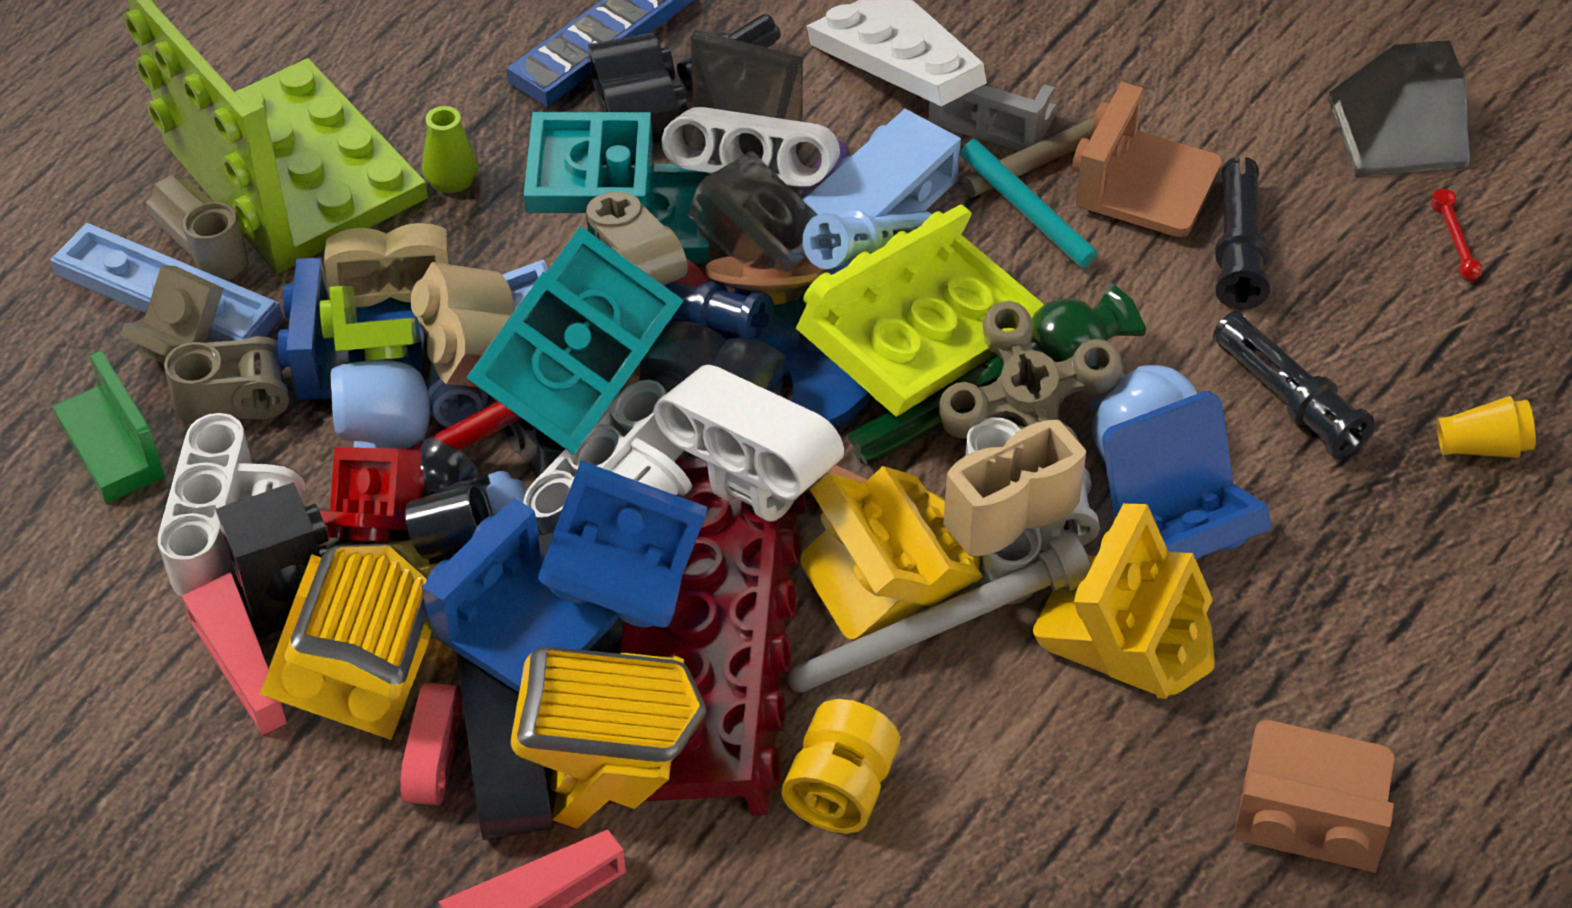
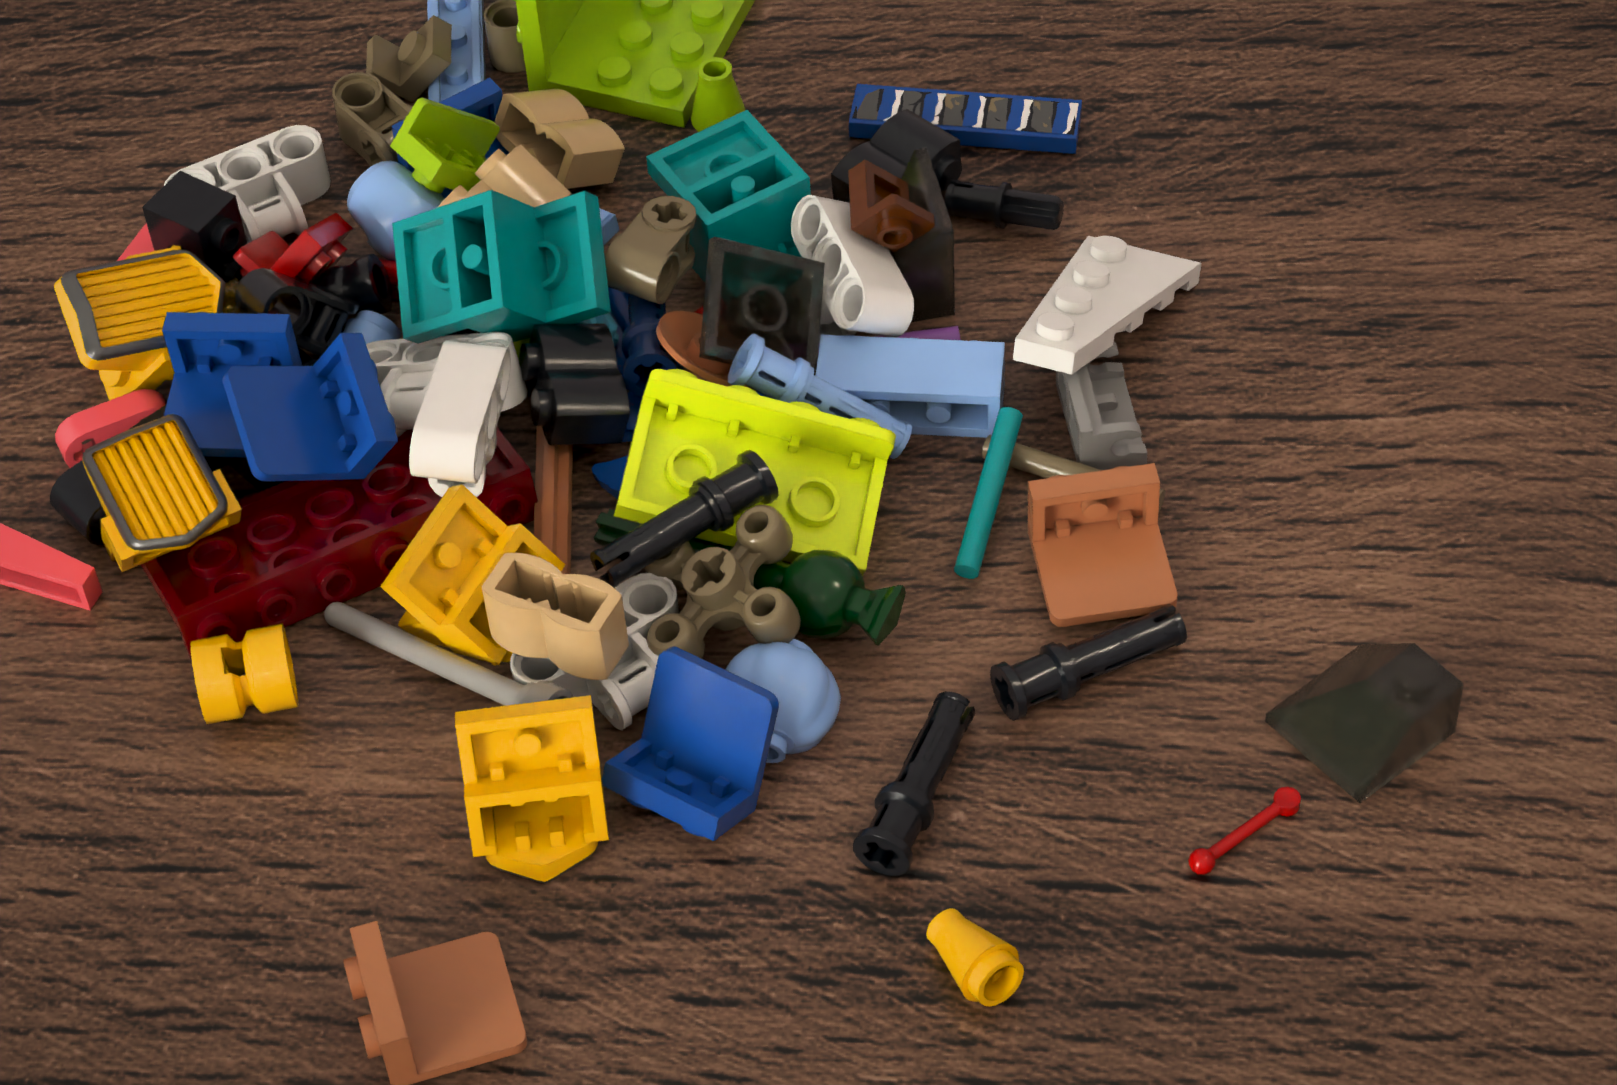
camera: 60 degrees right, 0 degrees up
(110, 435) = (286, 92): green panel -> none
(725, 89) = (883, 209): none -> reddish brown bracket
(960, 342) = (709, 506): none -> black pin

